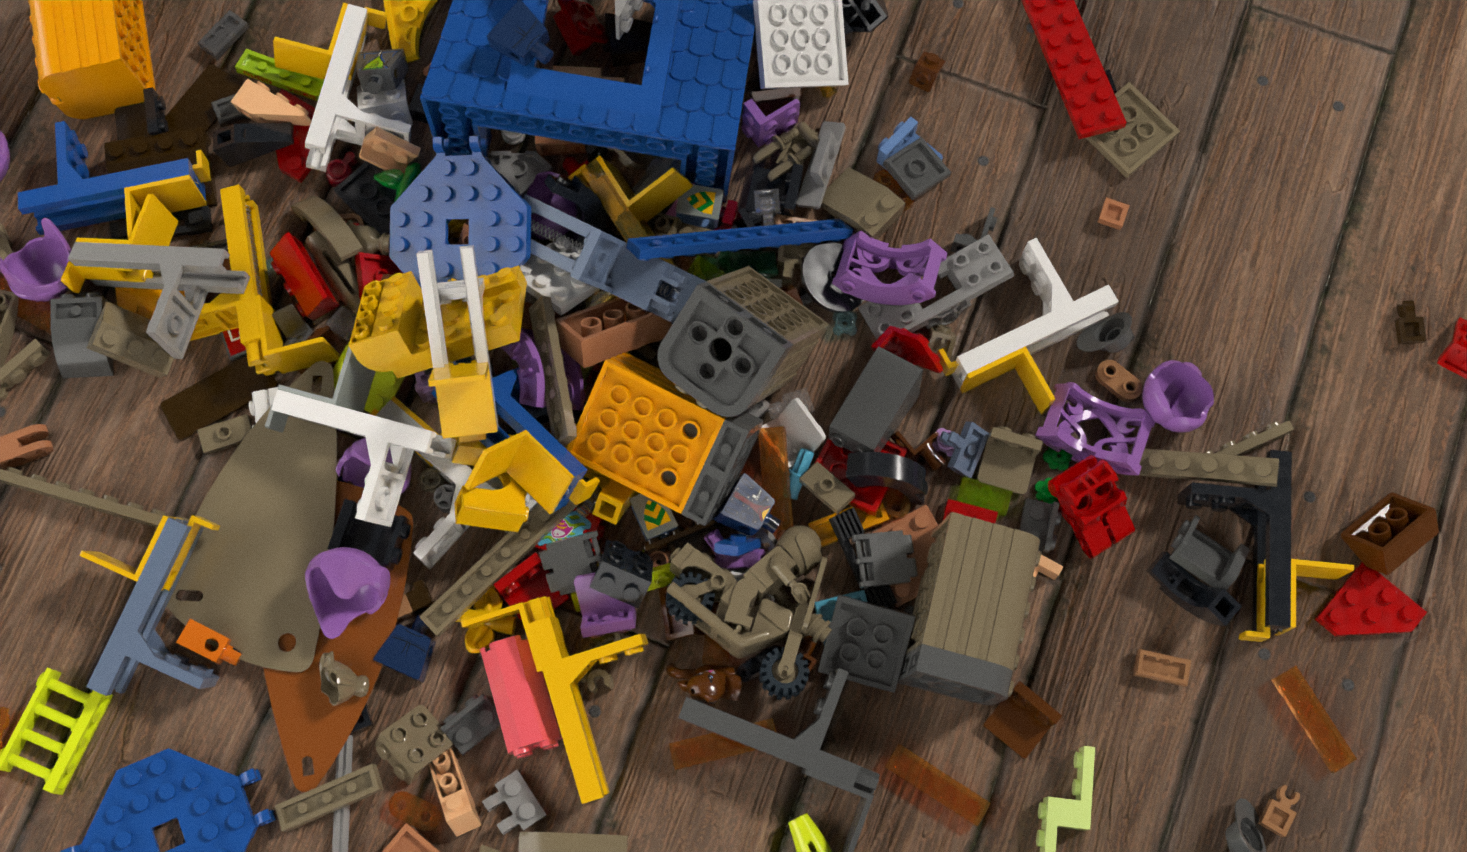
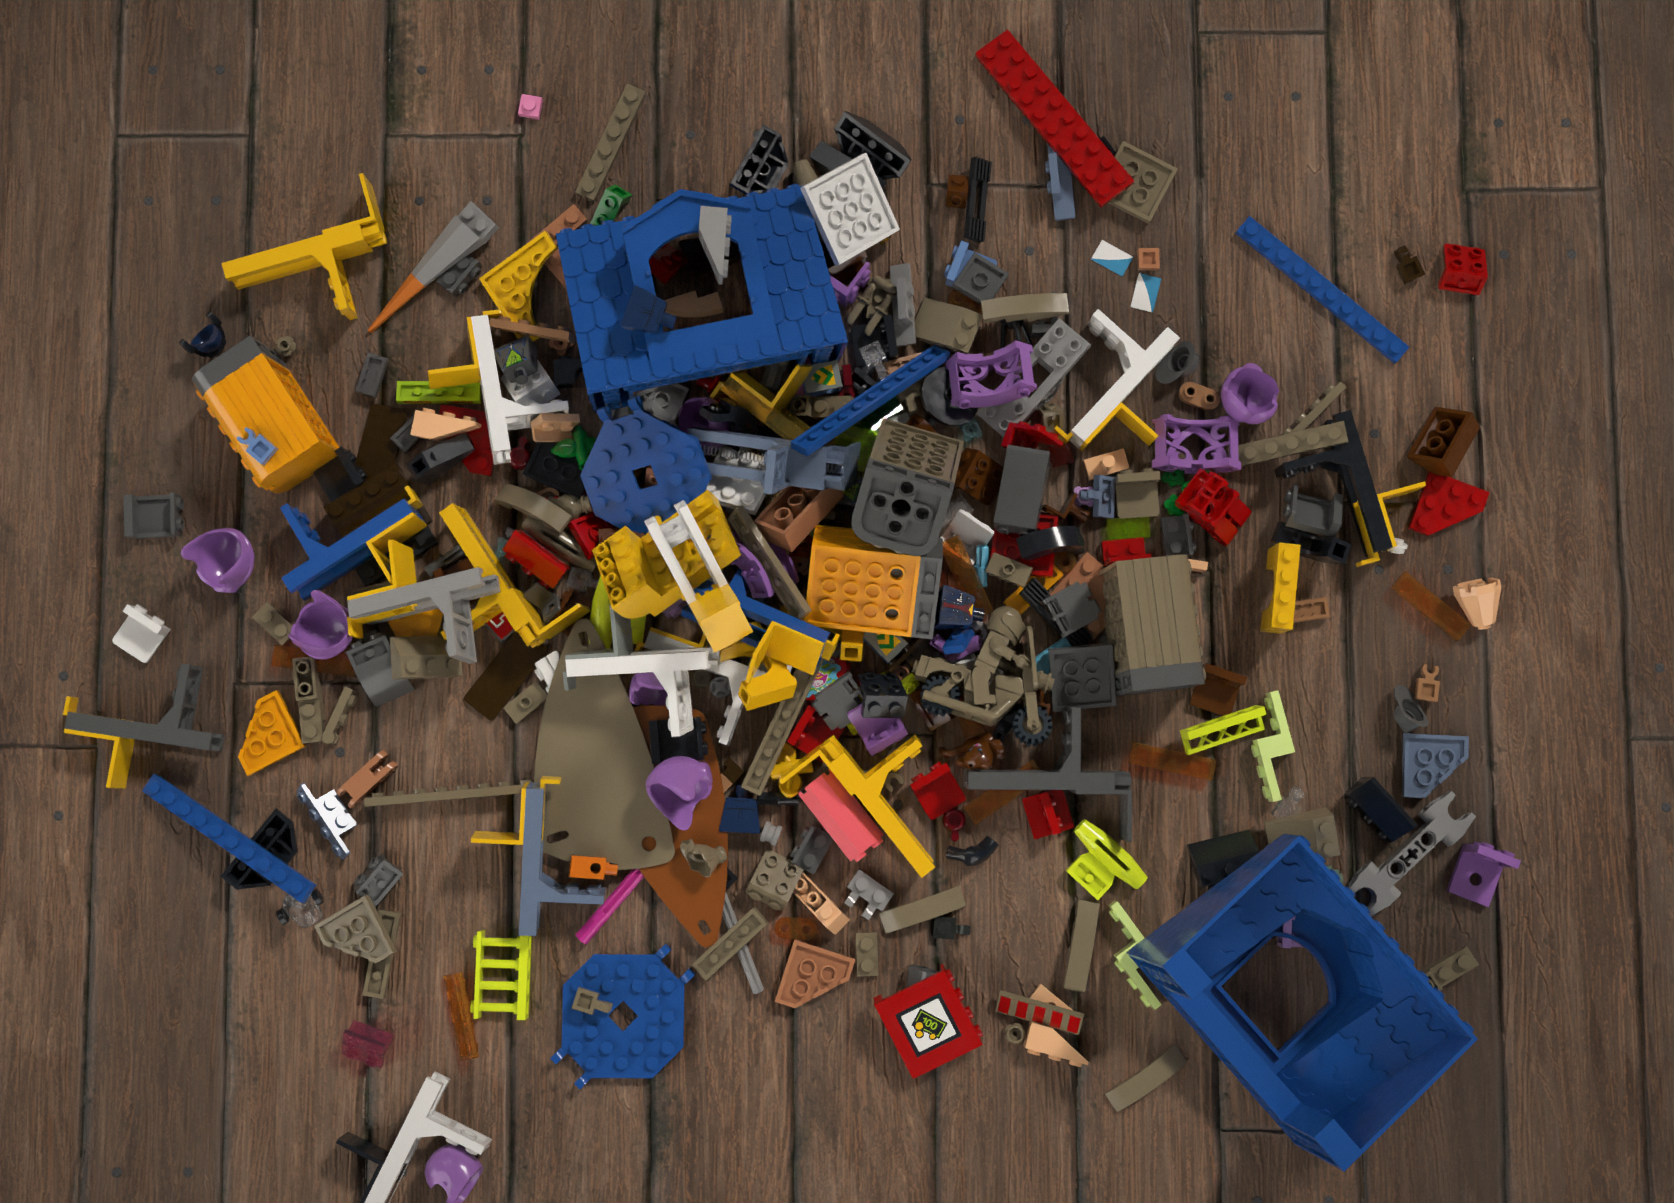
camera: 20 degrees left, 10 degrees up
(53, 40) = (259, 446): none -> medium blue plate
(133, 799) = (588, 1001): none -> dark tan plate
(212, 699) = (604, 912): none -> dark pink piece
(401, 39) = (541, 330): none -> medium nougat plate
(432, 686) = (771, 833): none -> light grey wheel
(456, 649) = (776, 798): none -> black axle
(645, 711) = (937, 790): none -> red bracket
(652, 757) = (954, 821): none -> dark red piece
(658, 804) = (974, 854): none -> black arm
(766, 789) = (1047, 813): none -> red bracket
(831, 373) = (978, 475): none -> reddish brown bracket
(936, 224) = (1014, 325): none -> black plant
(936, 387) = (1061, 455): none -> clear red plate
(955, 209) = (1025, 306): none -> dark tan slope
(959, 59) = (979, 171): none -> black container
(984, 414) = (1106, 464): none -> light nougat tile
(1016, 761) = (1221, 724): none -> neon yellow fence
(1042, 104) = (1060, 187): none -> sand blue bracket
(1072, 200) = (1112, 258): none -> sticker
(1097, 249) = (1145, 292): none -> sticker
(1151, 603) = (1284, 562): none -> yellow arch
(1296, 634) = (1400, 548): none -> white plate
(1301, 318) = (1322, 290): none -> blue plate
(1375, 735) = (1479, 601): none -> light nougat cone

